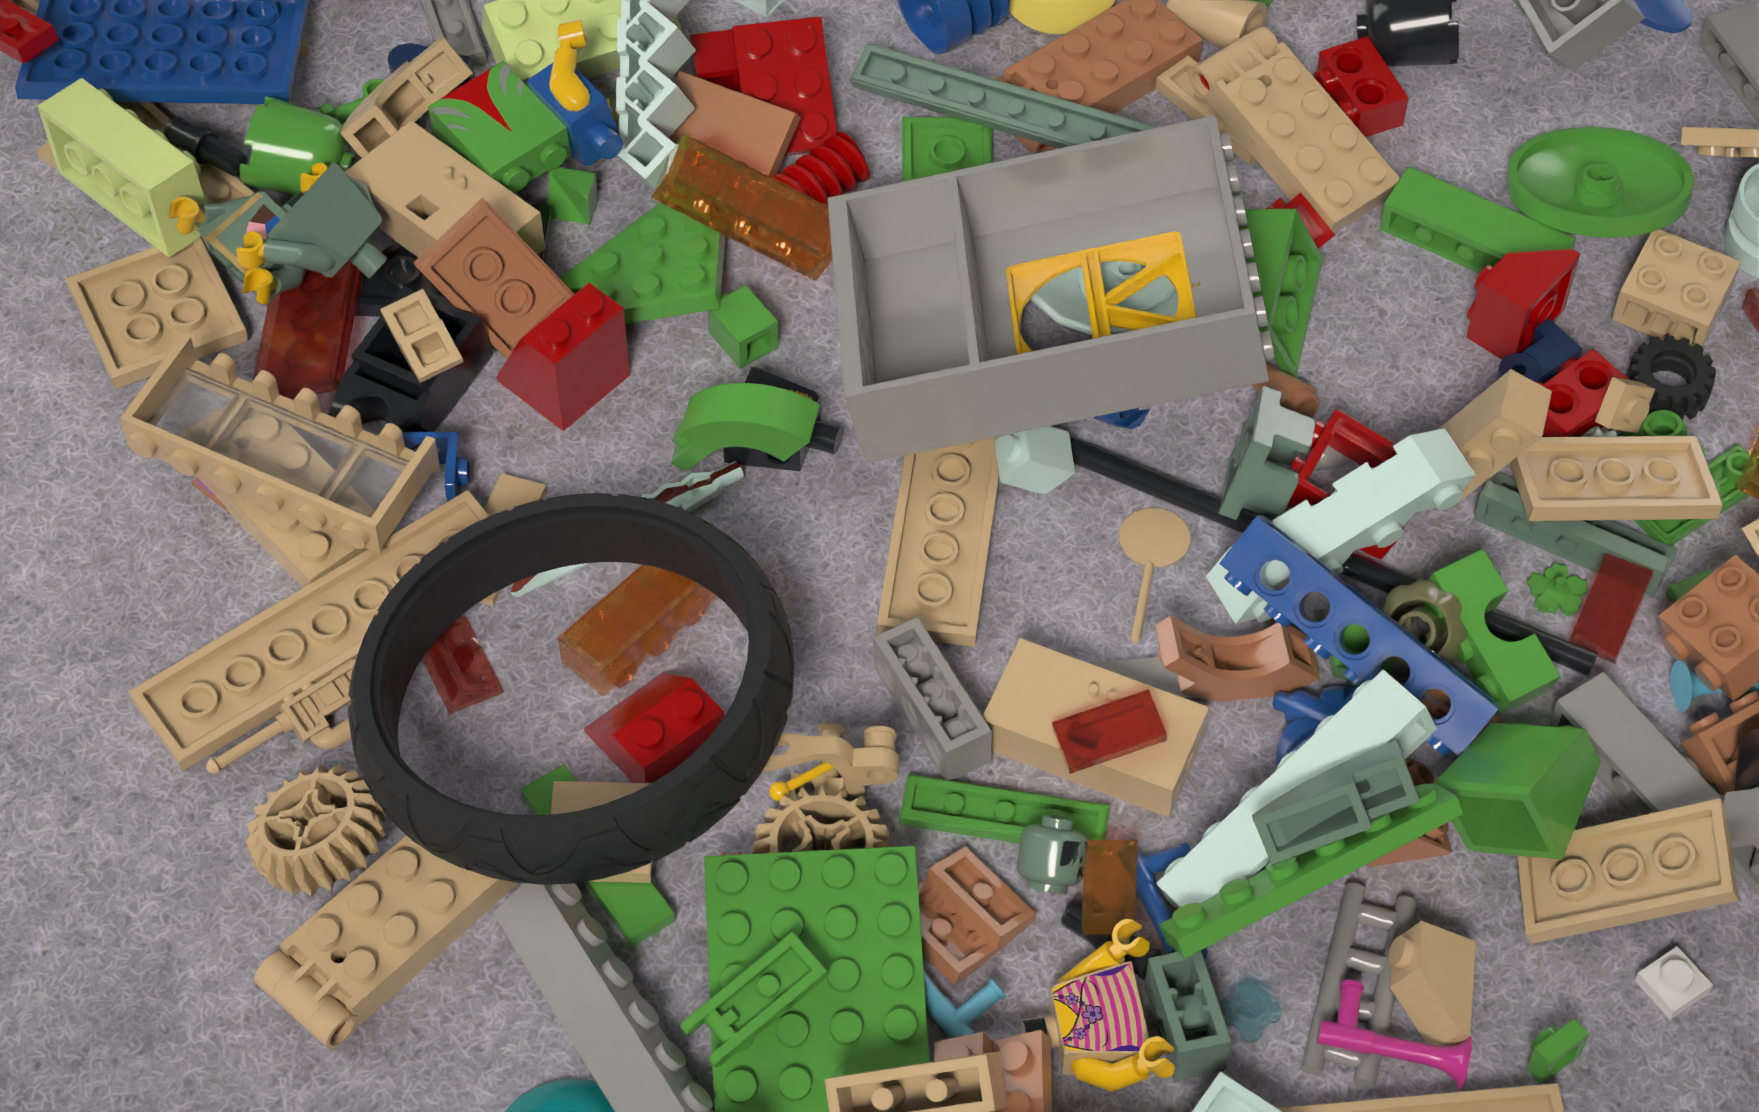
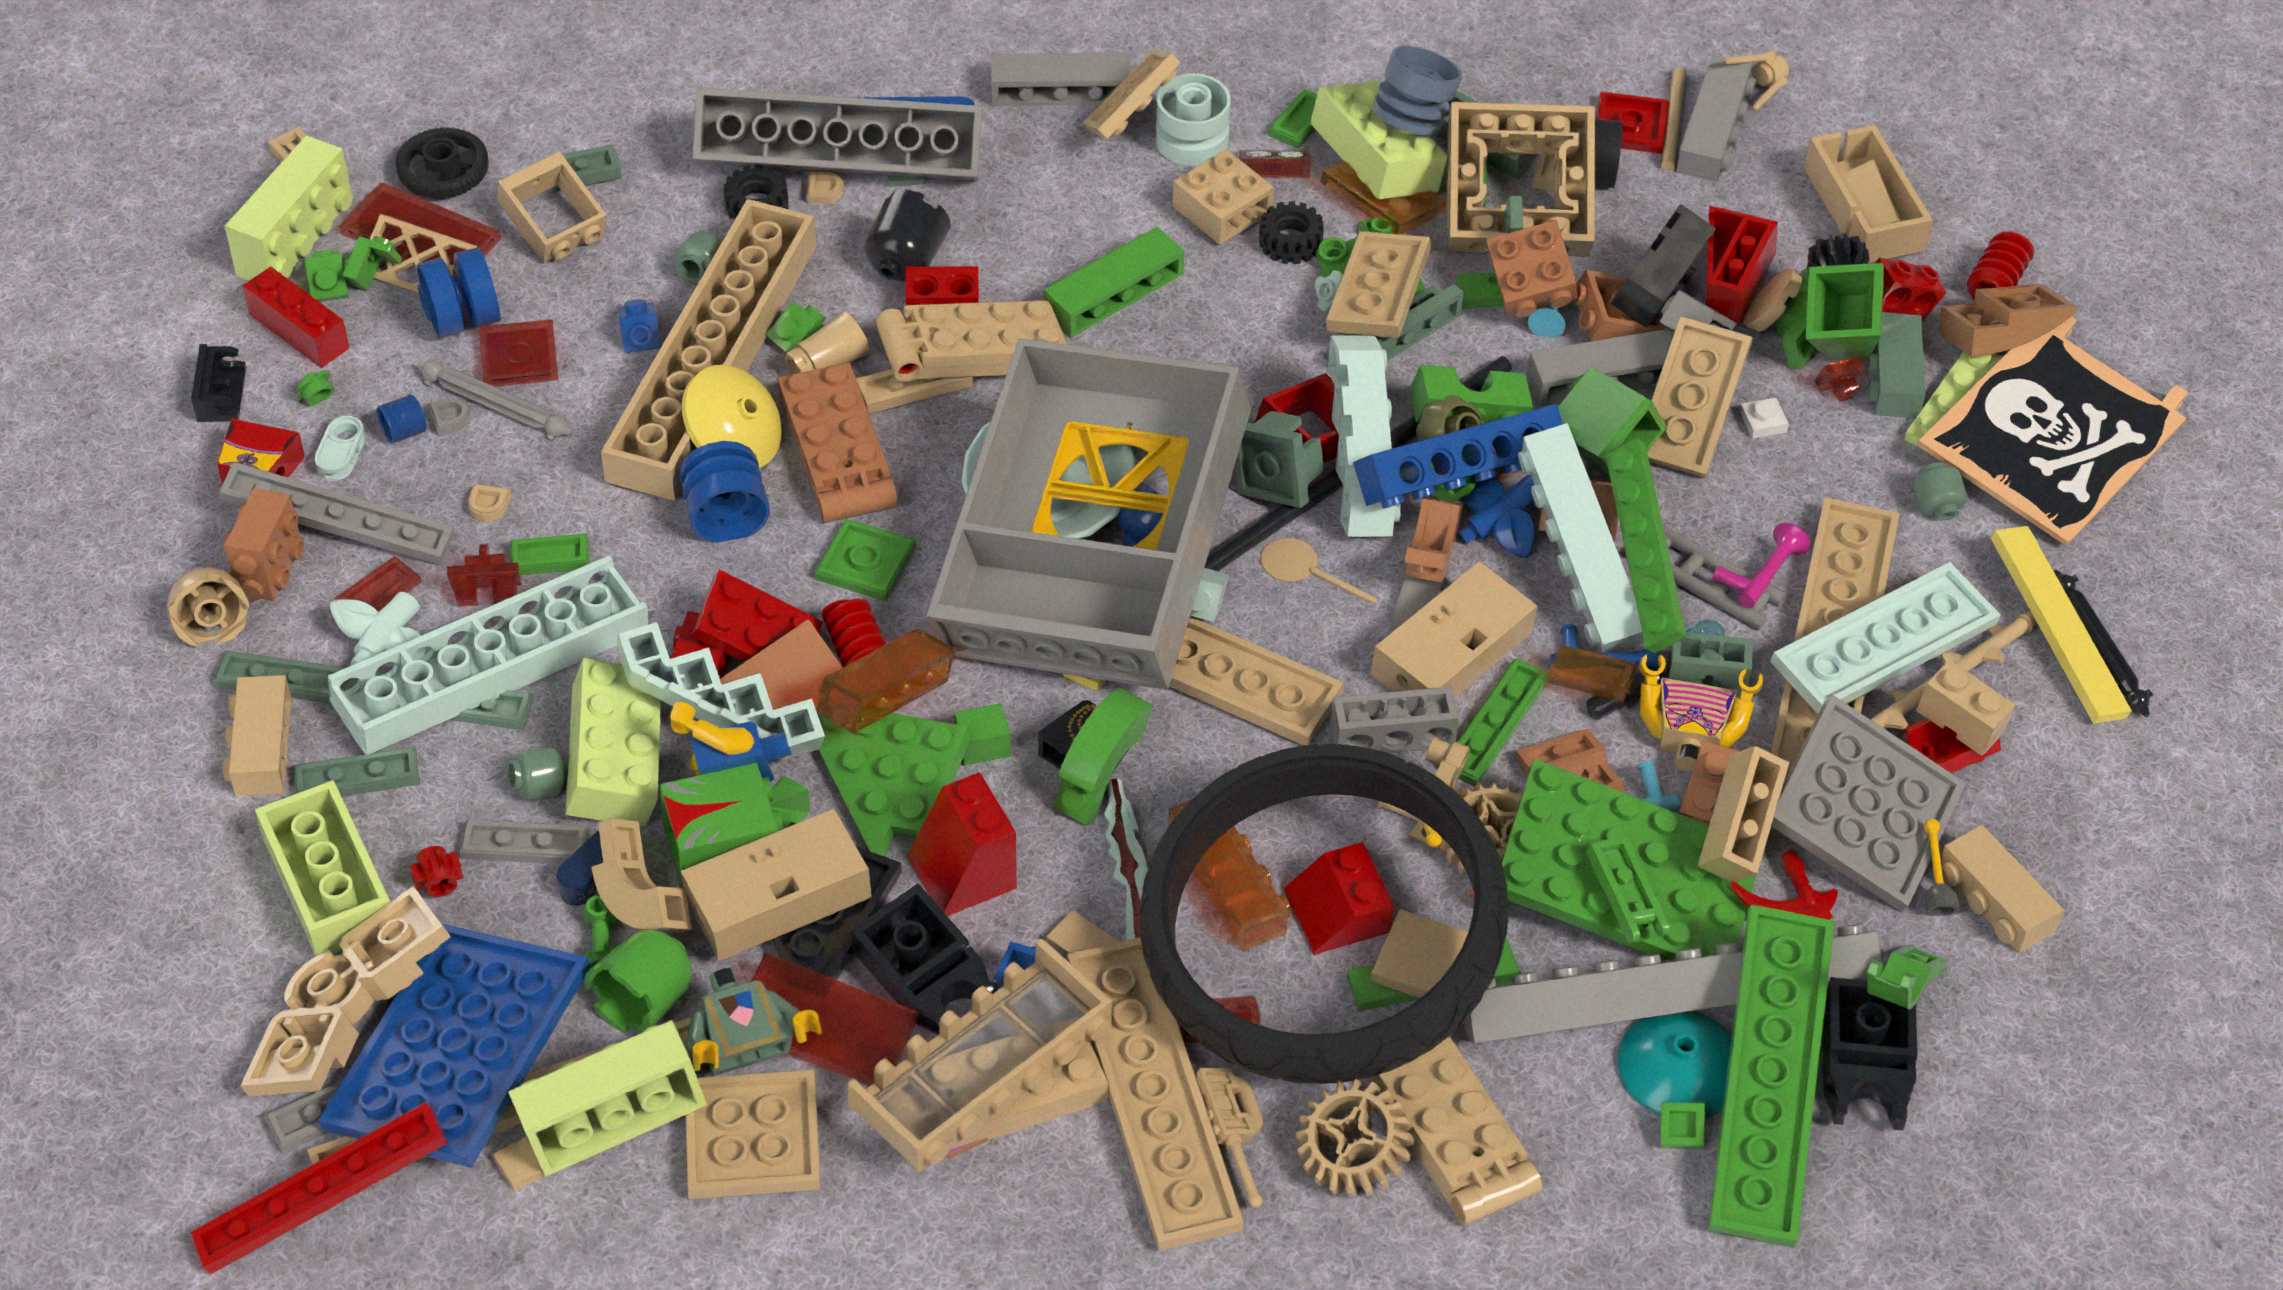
camera: 70 degrees left, 5 degrees down
(204, 146) = (615, 1032): black axle -> none
(321, 228) = (768, 955): sand green torso -> none
(421, 335) = (923, 927): tan slope -> none
(494, 276) = (881, 858): nougat tile -> none
(985, 100) = (863, 493): sand green tile -> none
(1052, 855) = (1552, 697): sand green head -> none
(1109, 731) = (1483, 618): clear red tile -> none
(1336, 803) = (1614, 498): sand green slope -> none
(1434, 981) = (1732, 530): tan slope -> none
(1499, 425) = (1326, 311): tan brick -> none
(1519, 297) = (1202, 277): red slope -> none
(1545, 356) = (1248, 292): dark blue leg -> none
(1556, 1049) = (1799, 489): bright green plate -> none
(1557, 591) = (1434, 356): bright green plant -> none
(1578, 395) = (1290, 286): red brick -> none
(1600, 182) = (1108, 197): bright green dish -> none
(1611, 607) = (1470, 333): clear red tile -> none
(1625, 405) = (1317, 256): tan plate -> none

